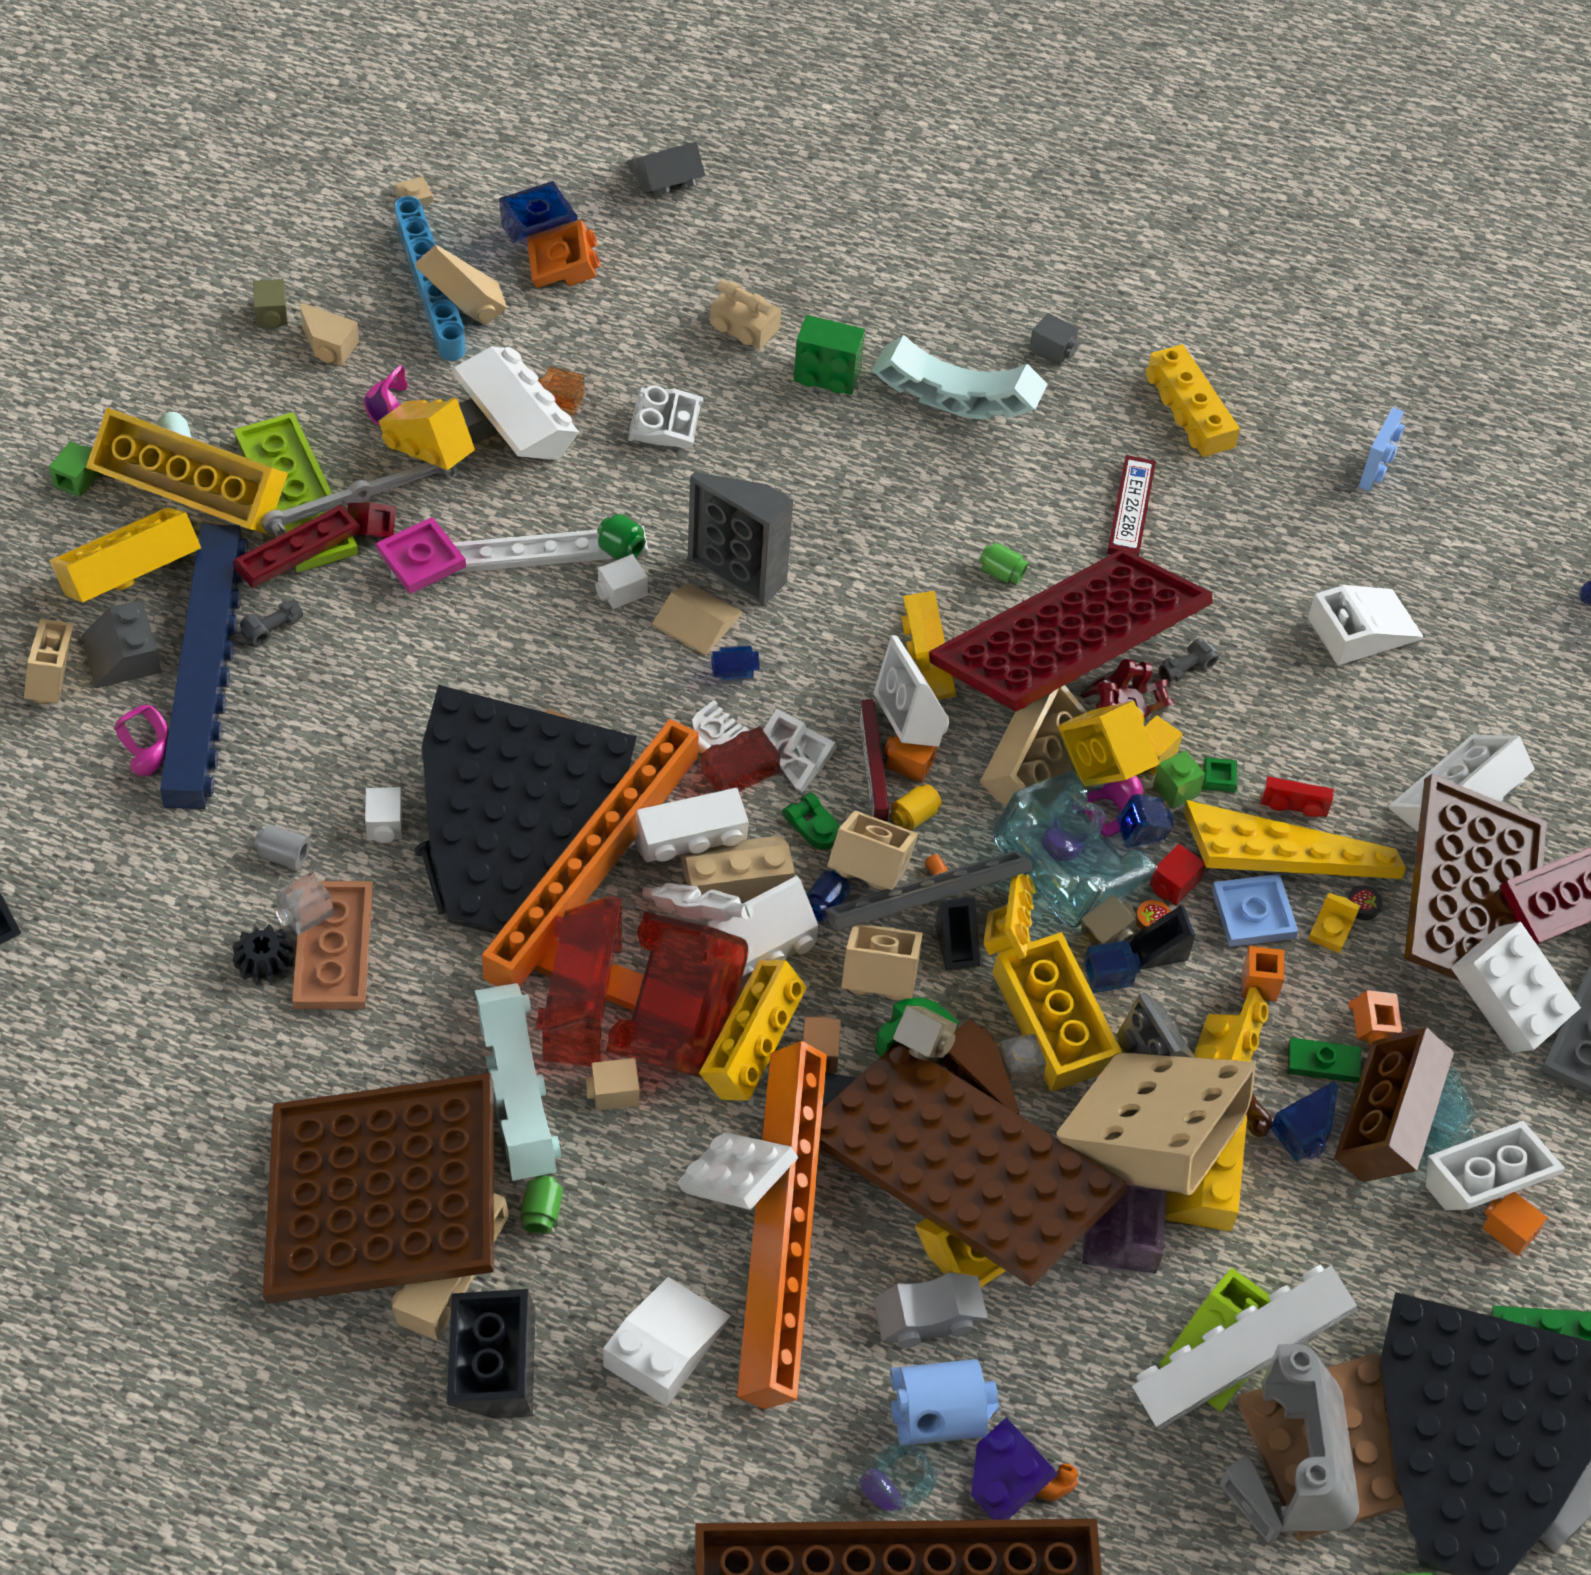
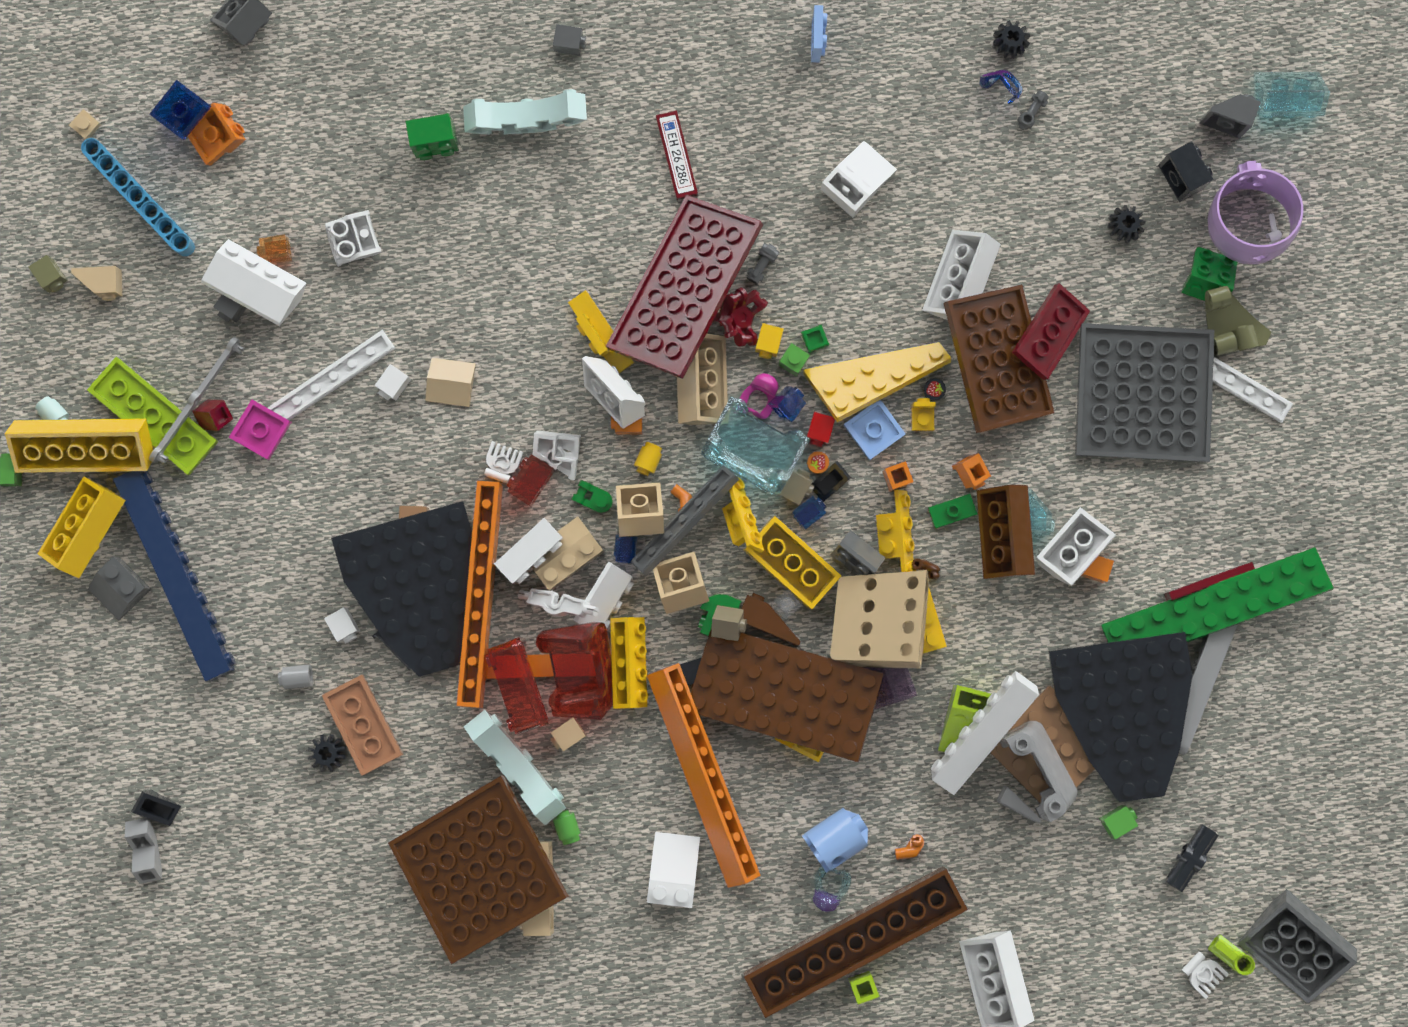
camera: 25 degrees left, 30 degrees up
(48, 661) = (80, 620): tan slope -> none
(146, 759) = (183, 657): dark pink piece -> none
(258, 630) = (190, 531): dark grey bar -> none
(296, 546) = (181, 464): dark red tile -> none
(303, 903) = (333, 716): clear brick -> none
(382, 402) = (169, 322): dark pink piece -> none
(428, 431) = (212, 337): yellow wedge -> none
(463, 284) = (169, 202): tan slope -> none
(492, 1353) = (588, 931): black slope -> none
(621, 537) = (376, 353): green head -> none
(735, 662) = (491, 408): clear blue brick -> none
(737, 1170) = (664, 760): white plate -> none
(740, 533) = (454, 325): dark grey slope -> none
(744, 314) = (359, 124): tan brick -> none
(824, 1035) = (669, 648): medium nougat brick -> none
(873, 760) = (609, 439): dark red tile -> none
(930, 1309) = (805, 784): light grey brick -> none
(958, 932) = (714, 537): black slope -> none
(1003, 563) = (618, 245): bright green brick -> none
(1008, 1471) = (886, 856): dark purple plate -> none
(1060, 843) = (742, 443): clear light blue piece -> none
(1109, 744) = (747, 369): yellow brick -> none
(1192, 400) = (678, 47): yellow brick -> none
(1297, 796) = (858, 339): red plate -> none
(1307, 1123) = (961, 561): clear blue slope -> none
(1515, 987) = (1045, 418): white brick -> none

